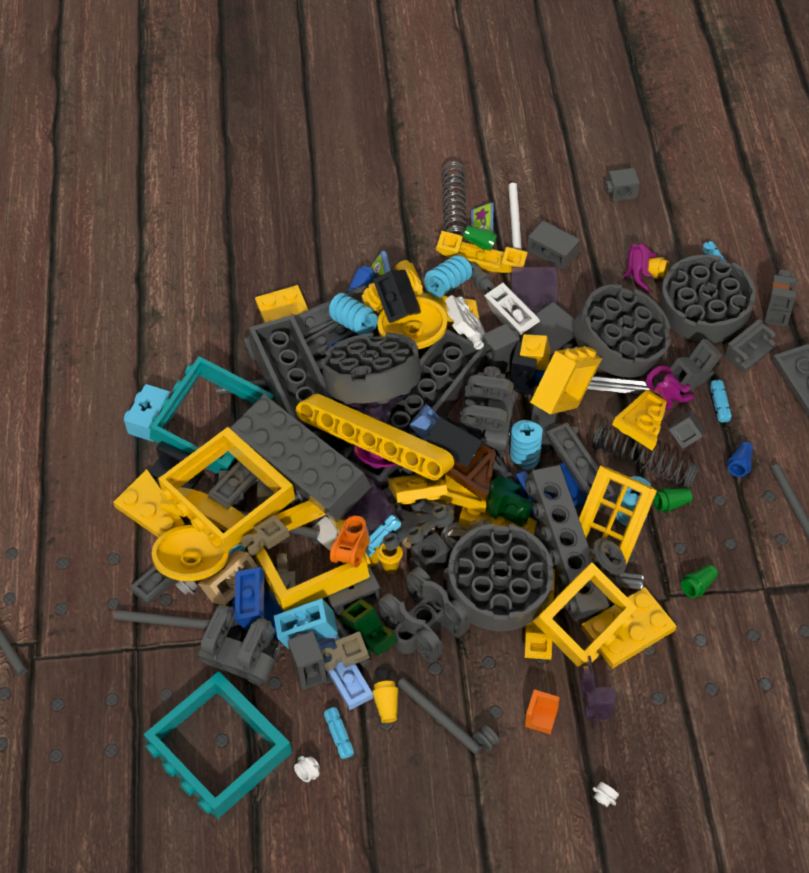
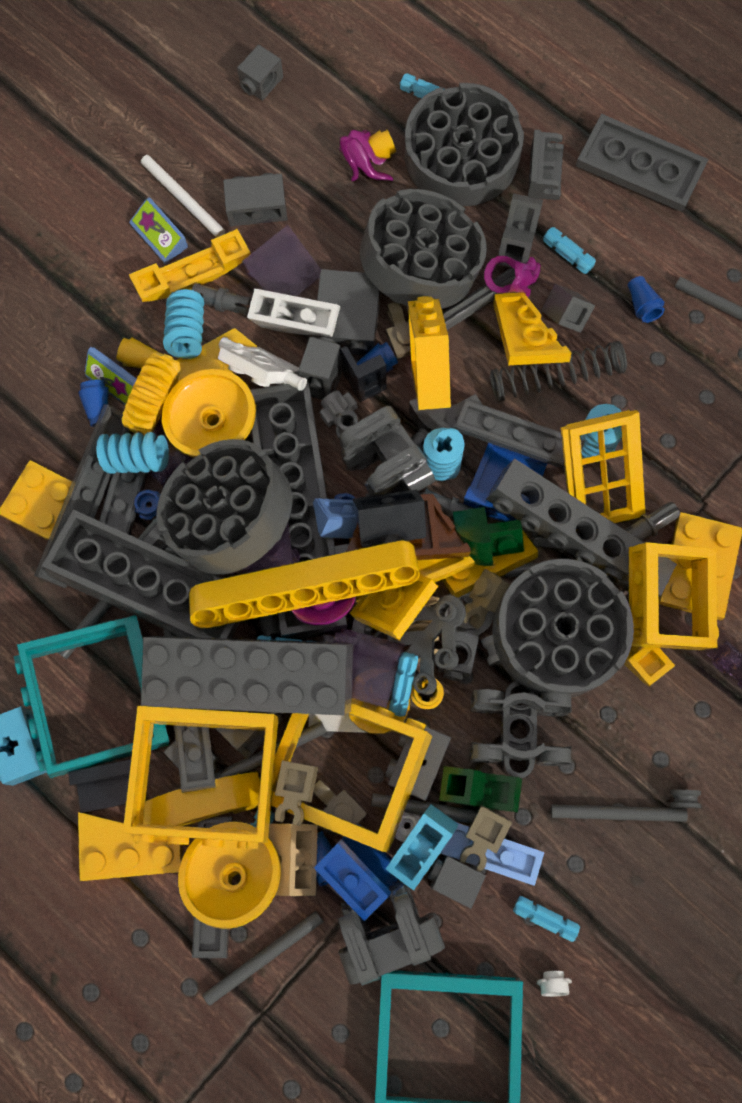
camera: 40 degrees left, 20 degrees up
(351, 542) = (399, 731): orange piece -> none
(386, 700) = (559, 844): yellow cone -> none
(396, 295) = (171, 398): black panel -> none
(453, 179) = (76, 196): dark grey piece -> none
(480, 237) = (177, 250): green cone -> none
(536, 348) = (364, 343): yellow brick -> none
(542, 711) = (708, 727): orange panel -> none
(608, 557) = (628, 506): dark grey gear -> none
(671, 498) = (623, 392): green cone -> none
(697, 582) = (721, 463): green cone -> none
(781, 299) = (532, 90): dark grey hips -> none

